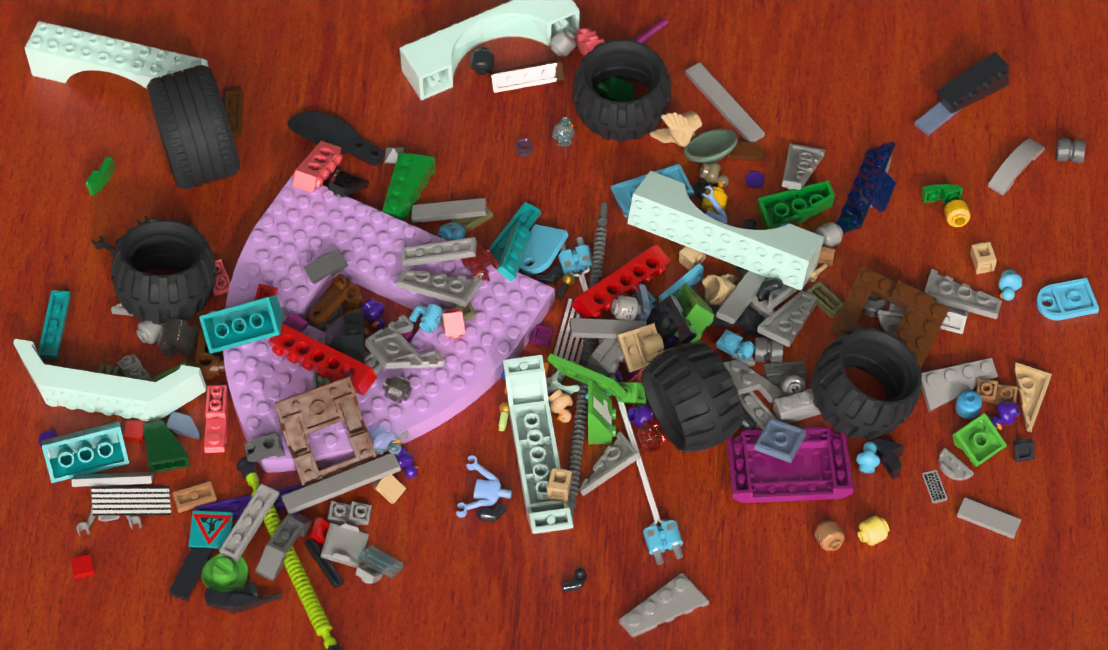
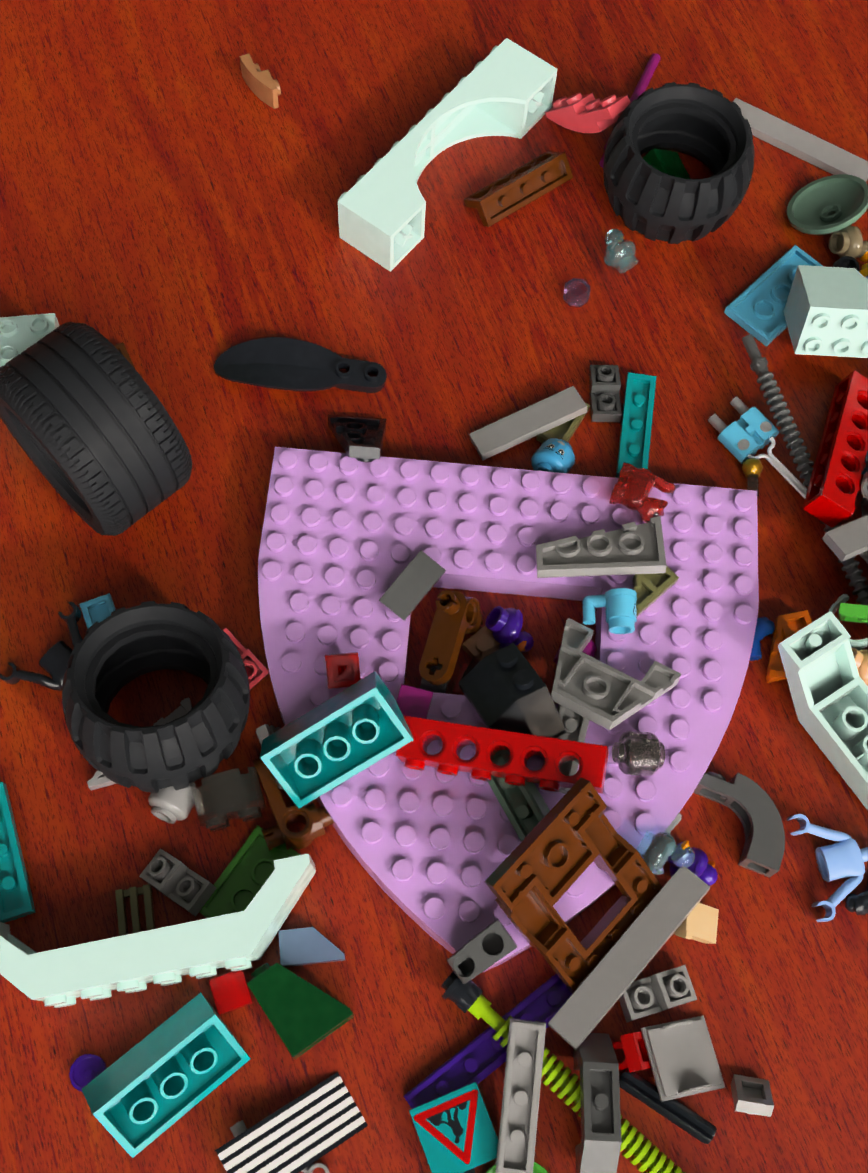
camera: 30 degrees left, 10 degrees up
(112, 479) = (238, 1107): tile -> none
(194, 496) = (394, 1078): medium nougat plate -> none
(216, 419) = (361, 918): coral slope -> none
(317, 166) = (309, 426): coral brick -> none
(381, 561) = (756, 1057): clear light blue tile -> none
(391, 154) = (398, 366): light grey slope -> none
(407, 182) = (444, 397): green wedge -> none
(439, 252) = (574, 497): light grey tile -> none
(450, 464) = (759, 816): none -> dark grey arch
(453, 322) = (662, 605): brick -> none
(482, 61) = (450, 186): black head -> none
(504, 411) = (786, 711): piece -> none
(507, 208) = (604, 393): none -> dark grey slope
(514, 251) = (674, 459): teal plate -> none
(542, 248) = (688, 432): medium azure tile -> none
(542, 335) = (769, 568): magenta tile -> none
(552, 277) = (728, 471): black arm -> none
(563, 42) = (547, 125): light grey head -> none
(565, 345) = (801, 546): sticker -> none
(680, 128) = (774, 196): tan helmet -> none

